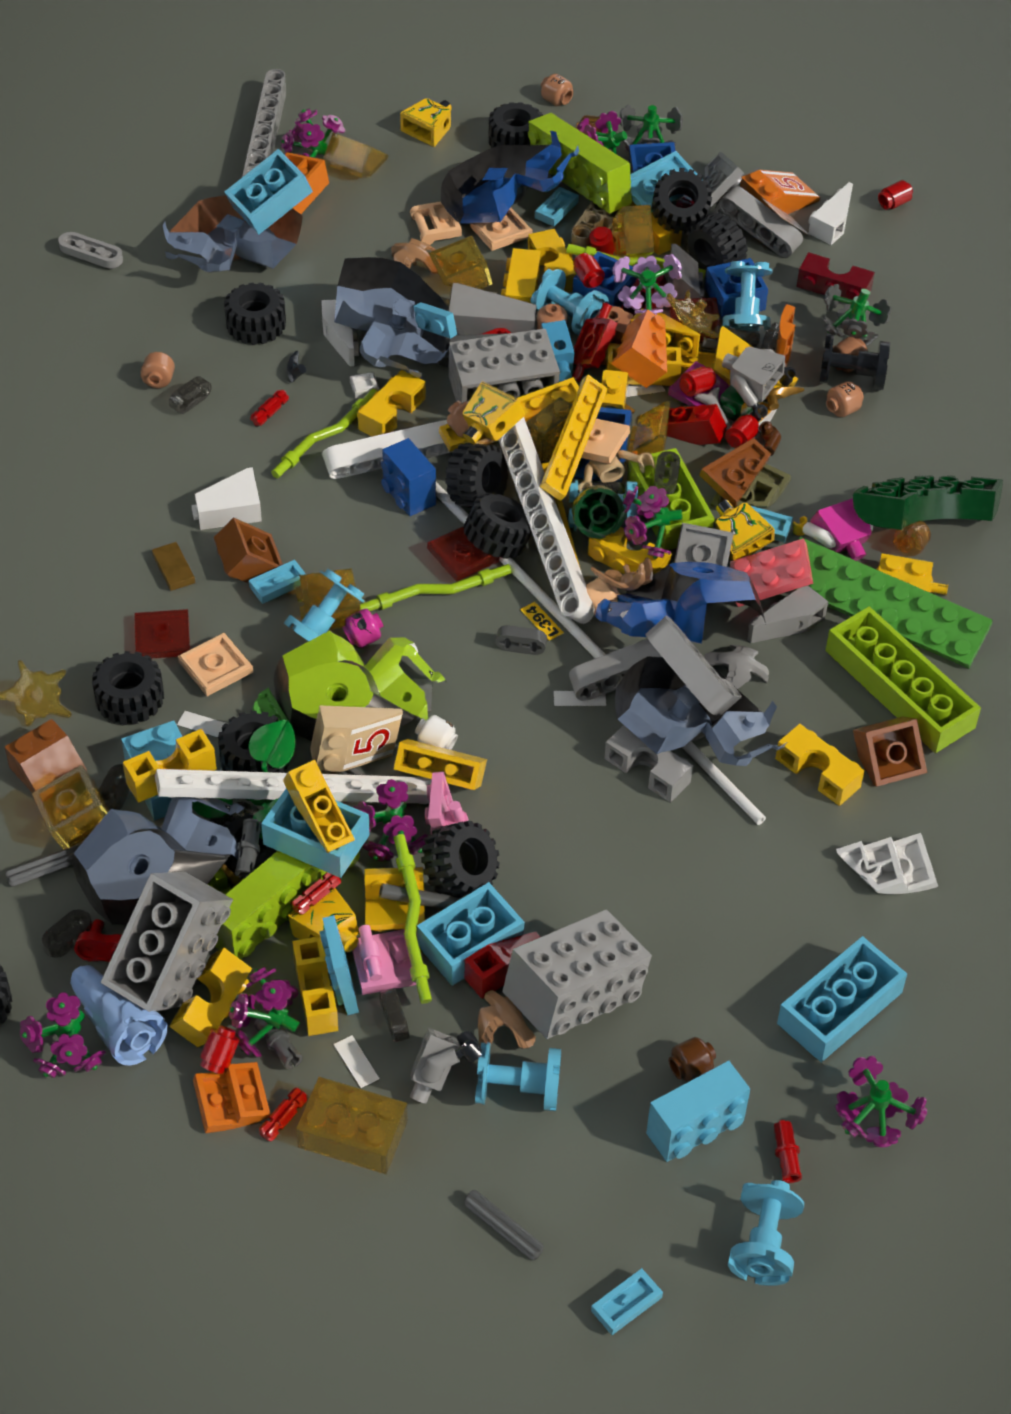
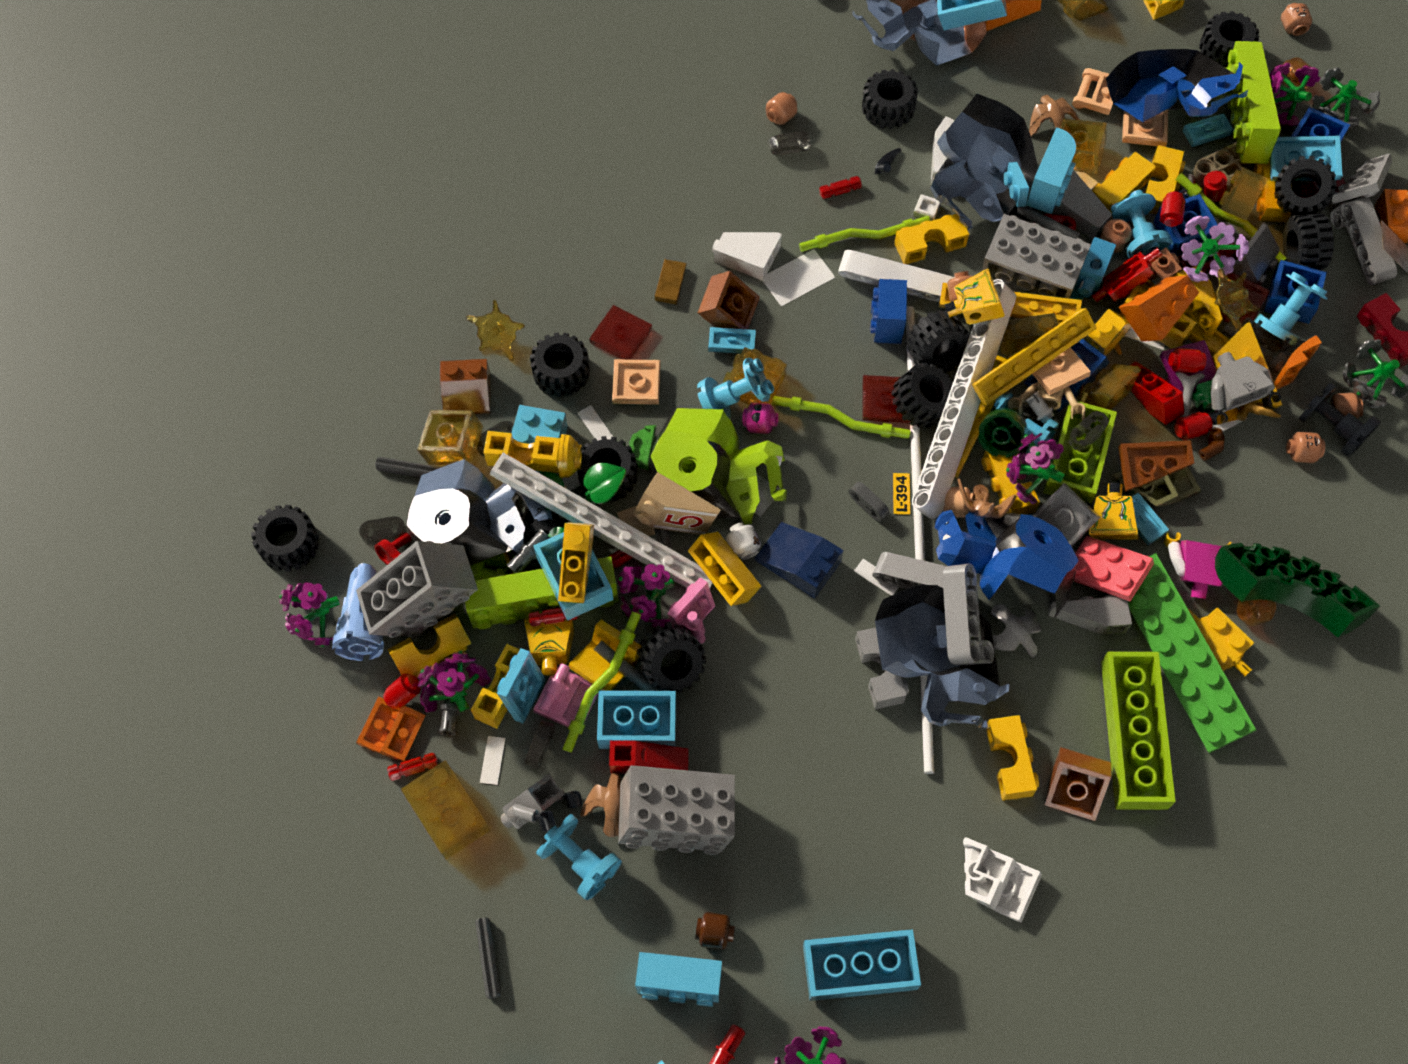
camera: 40 degrees right, 15 degrees up
(222, 745) = (569, 456): none -> yellow piece
(292, 501) = (797, 277): none -> white sticker
(463, 290) = (1053, 173): none -> medium azure brick
(499, 719) = (800, 558): none -> dark blue slope
(609, 479) = (1040, 407): none -> light grey pin

